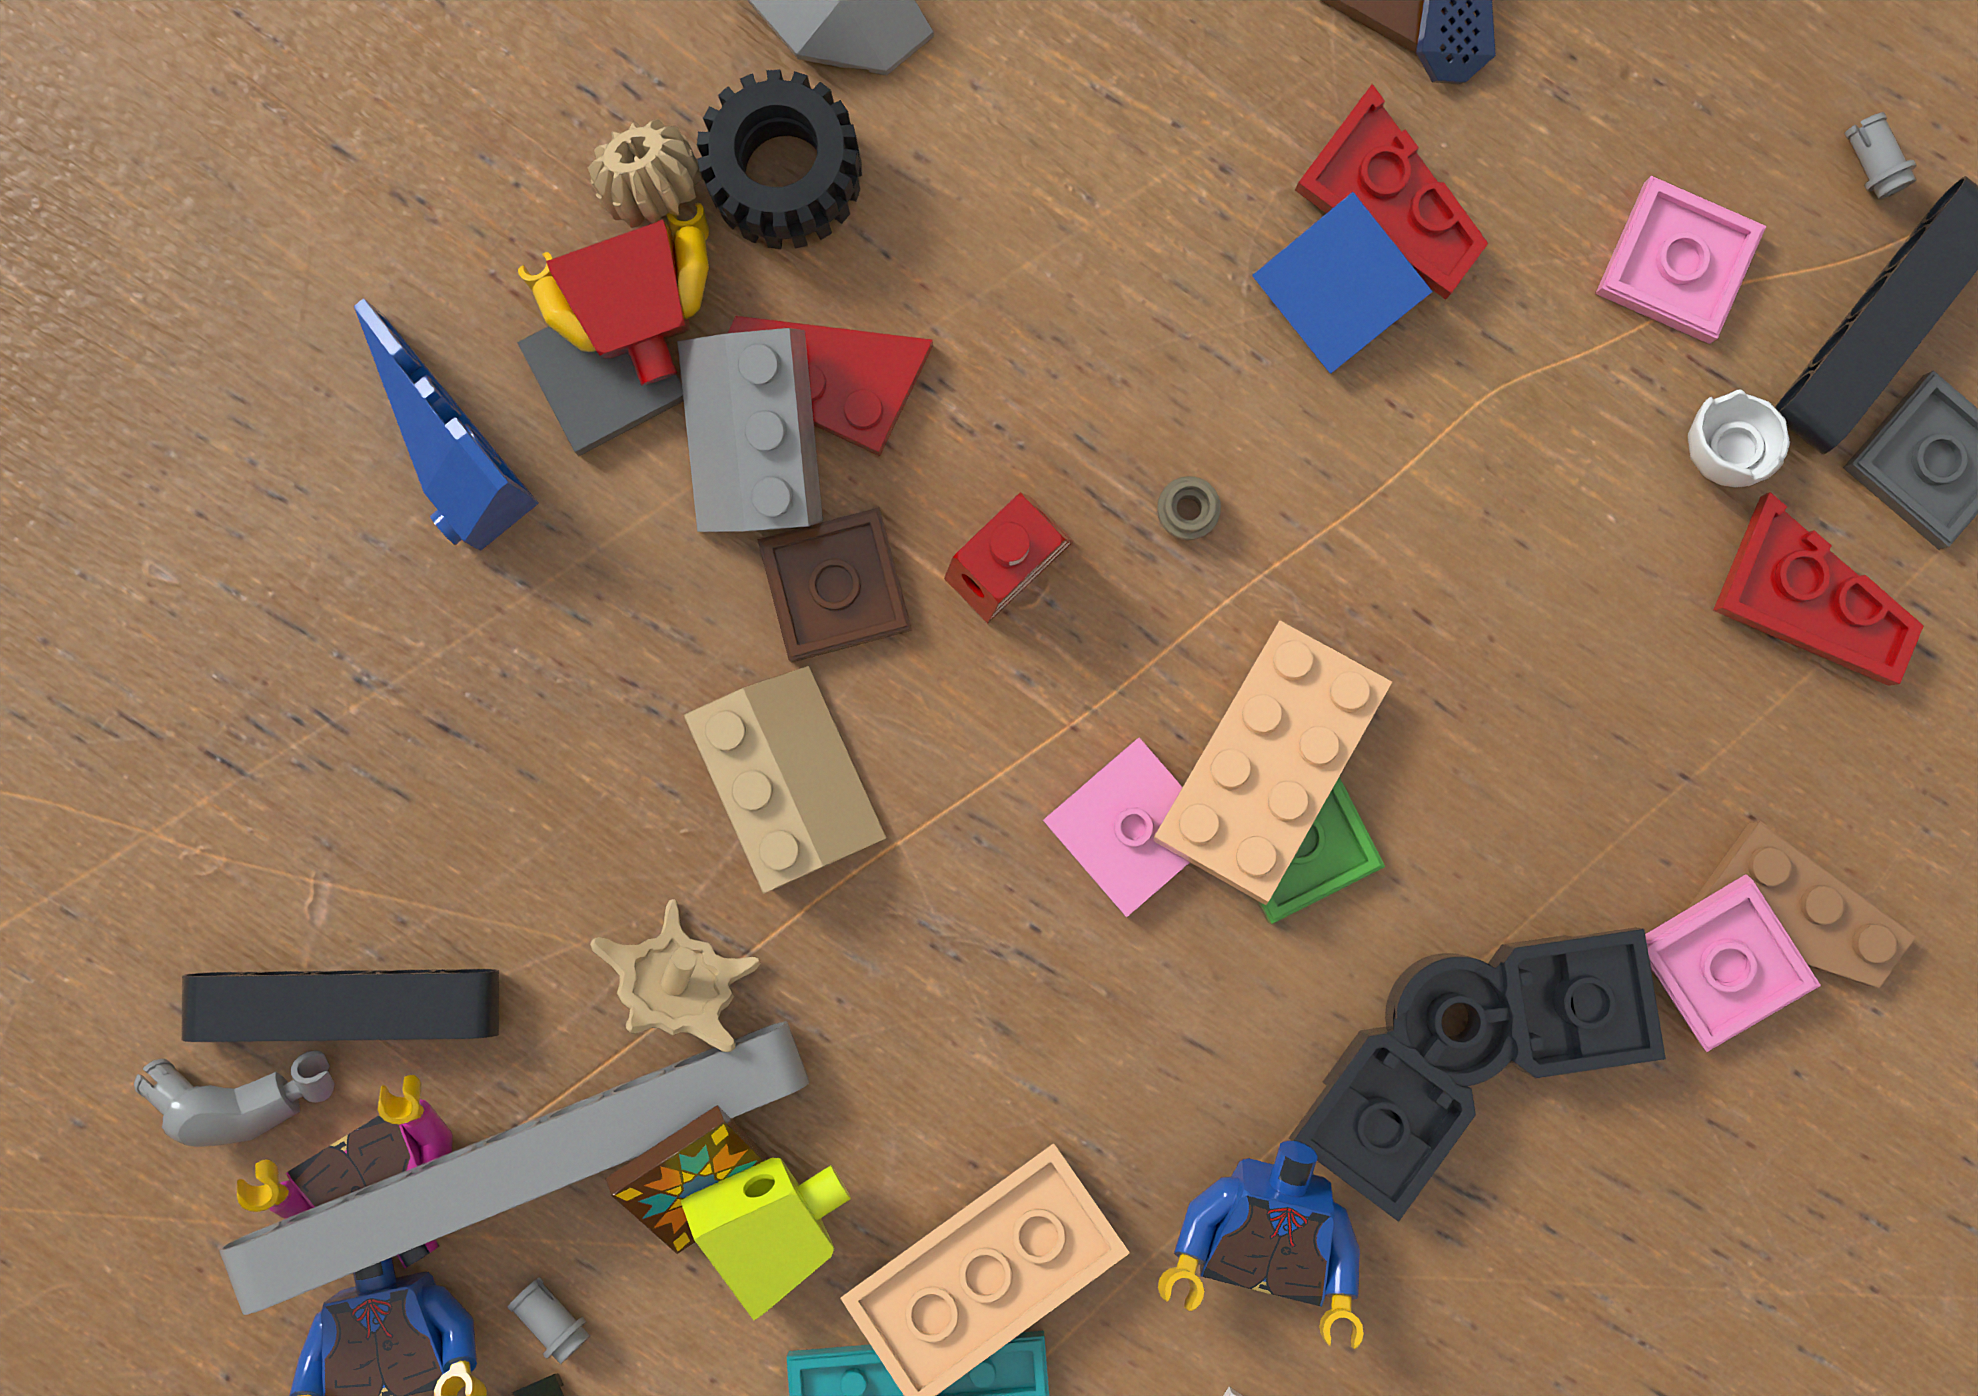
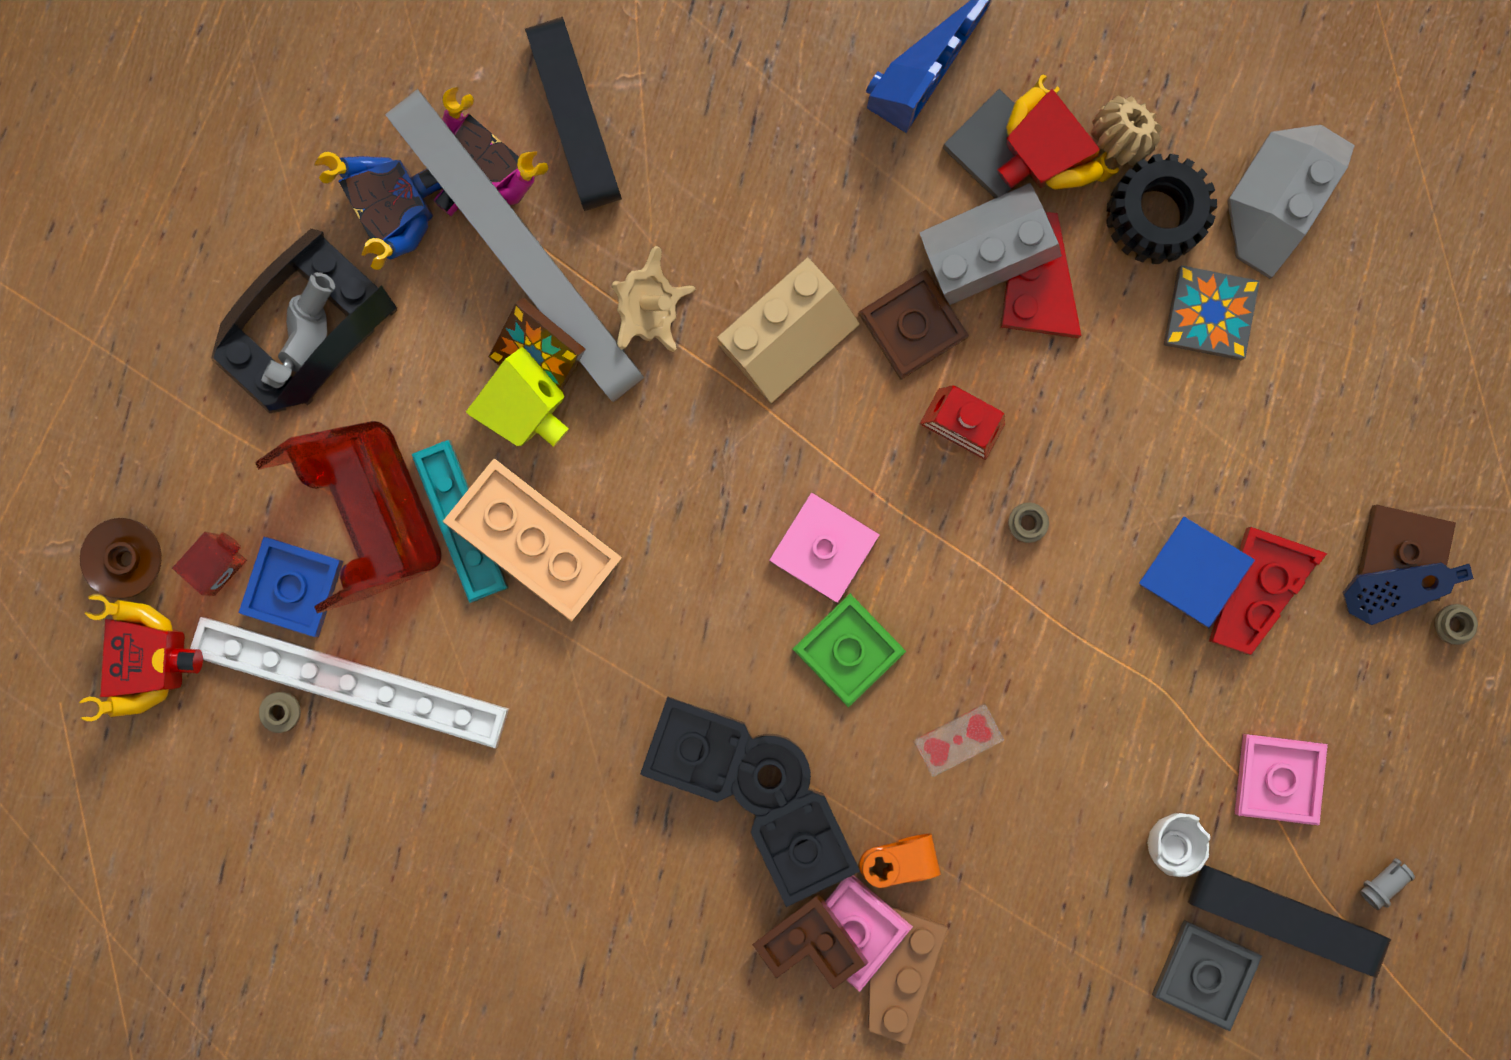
camera: 75 degrees right, 0 degrees up
(229, 1115) = (490, 72): light grey arm -> none
(549, 1321) = (427, 294): light grey pin -> none
(958, 137) = (1211, 313): none -> tile
(1272, 762) = (890, 618): light nougat plate -> none
(1274, 1235) = (609, 702): torso -> none
(1482, 716) = (958, 740): none -> clear tile
(1644, 854) = (908, 859): none -> orange piece
(1716, 1027) = (815, 933): none -> reddish brown plate
(1808, 597) = (1094, 922): red wing -> none

